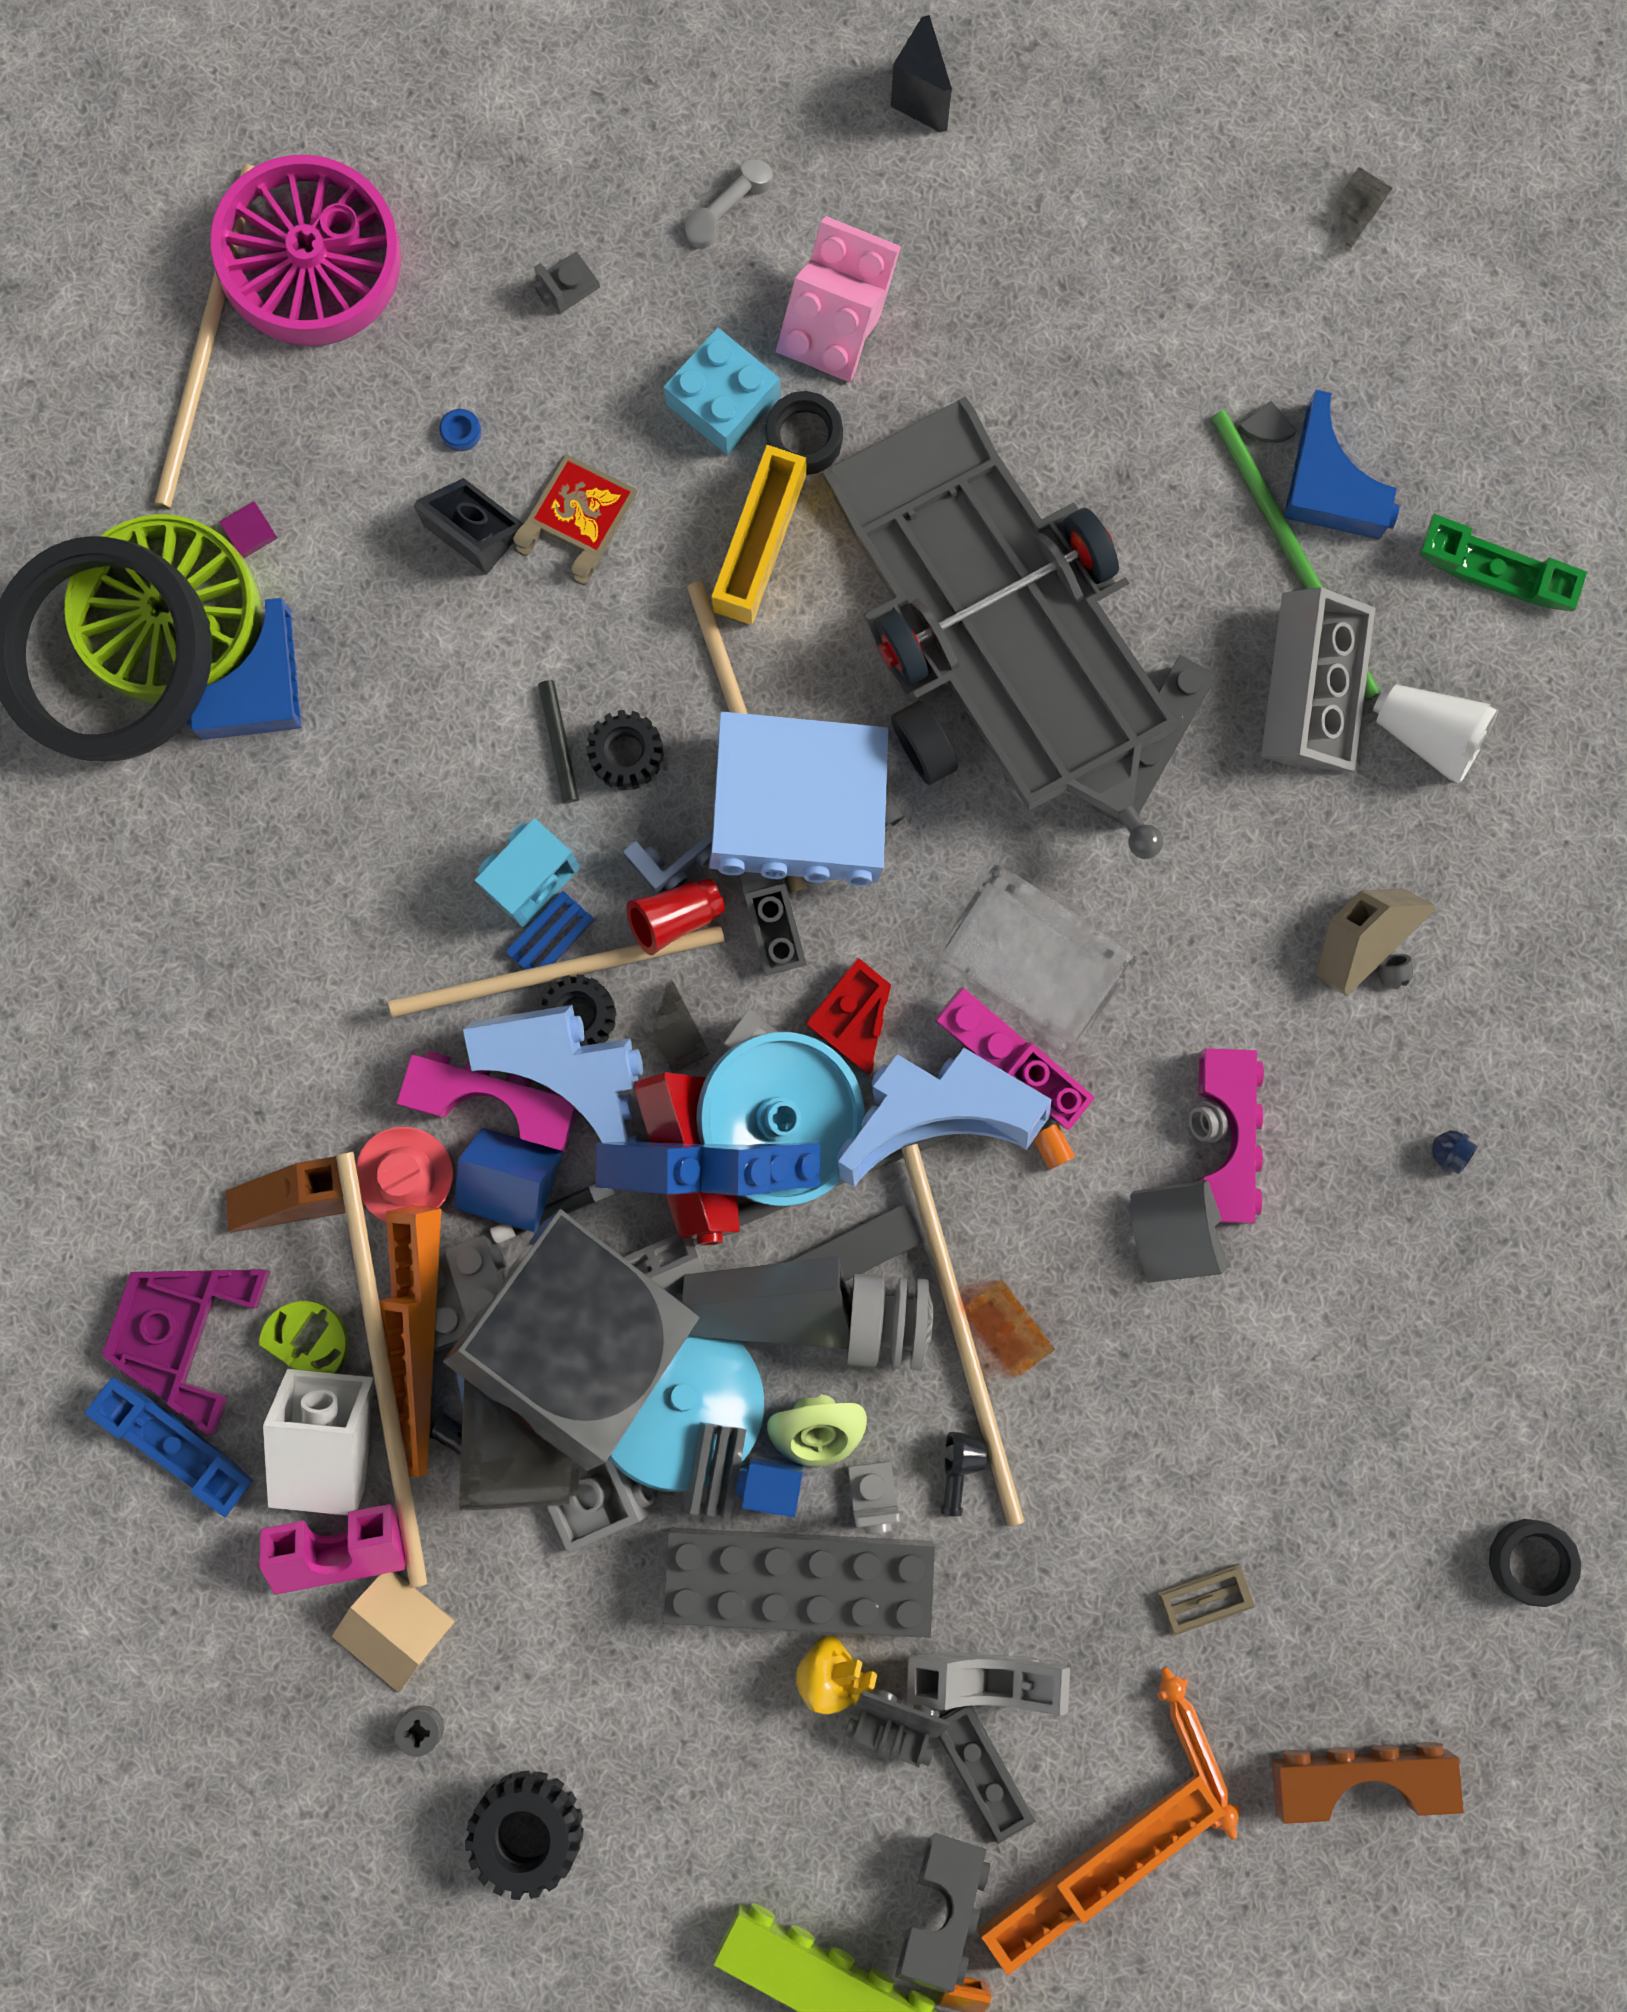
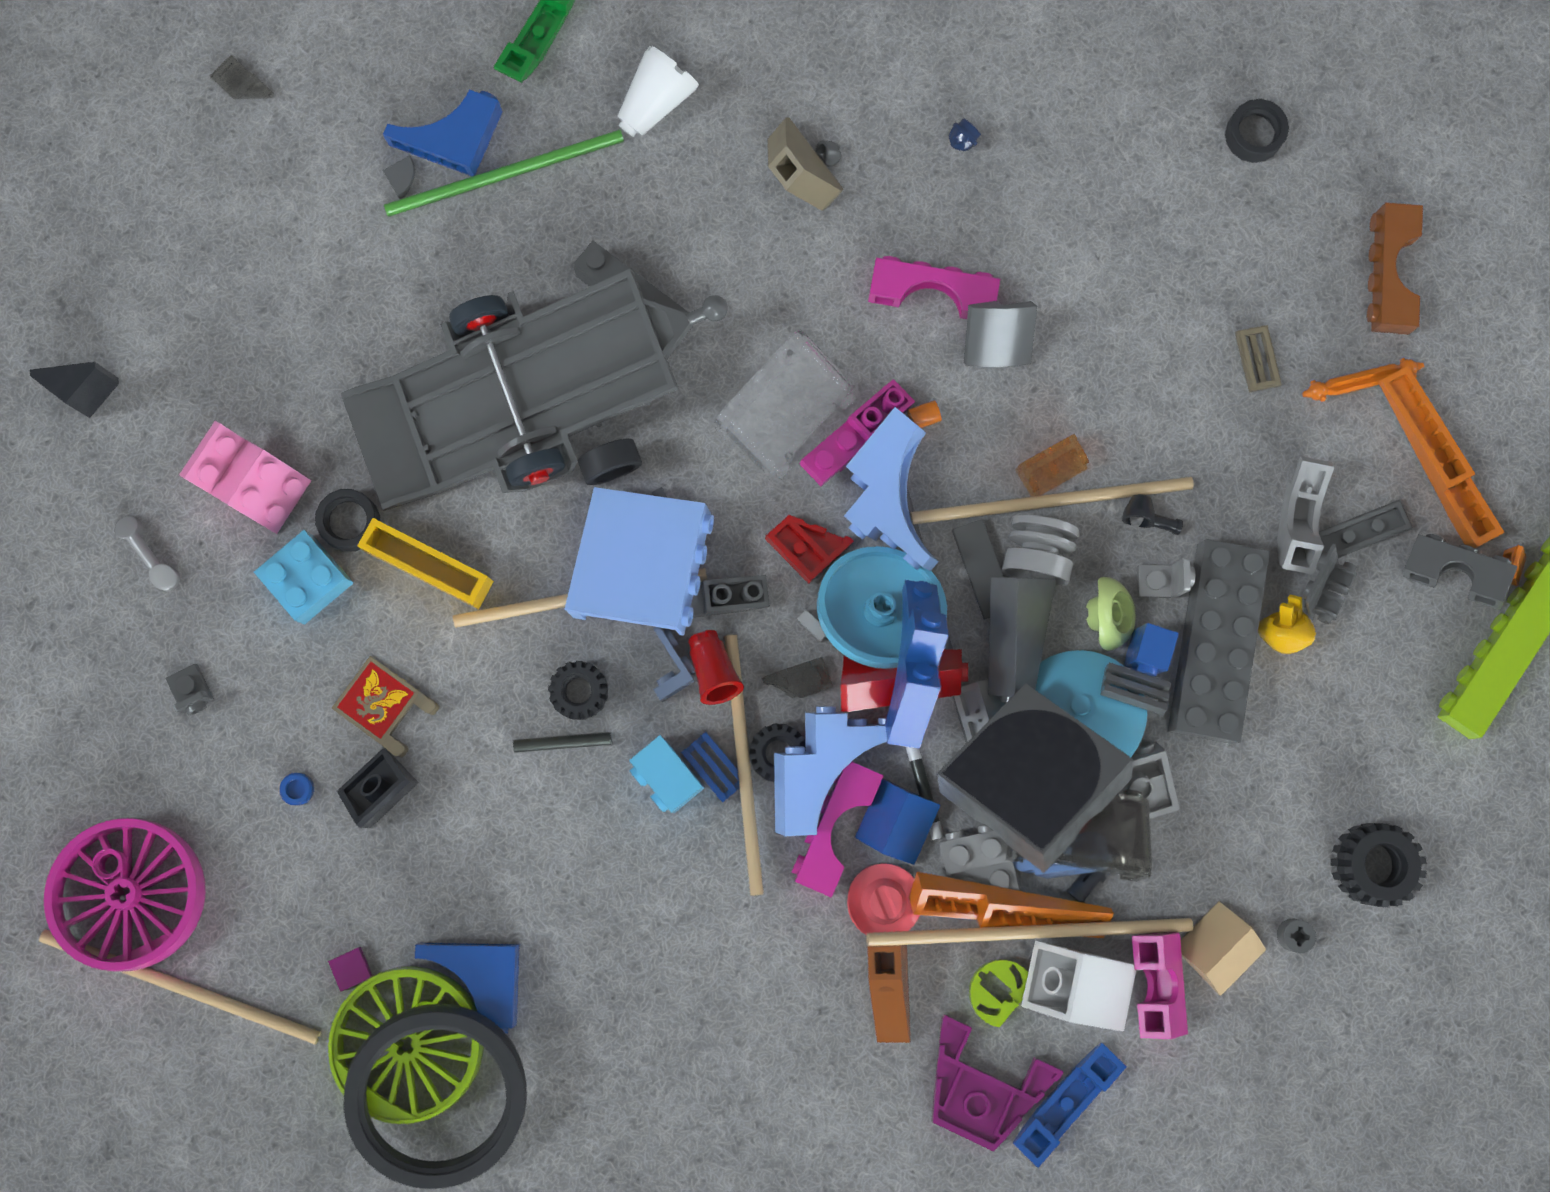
camera: 85 degrees left, 0 degrees up
(1208, 1121) = (921, 301): light grey plate -> none
(1318, 680) = (605, 171): light grey slope -> none

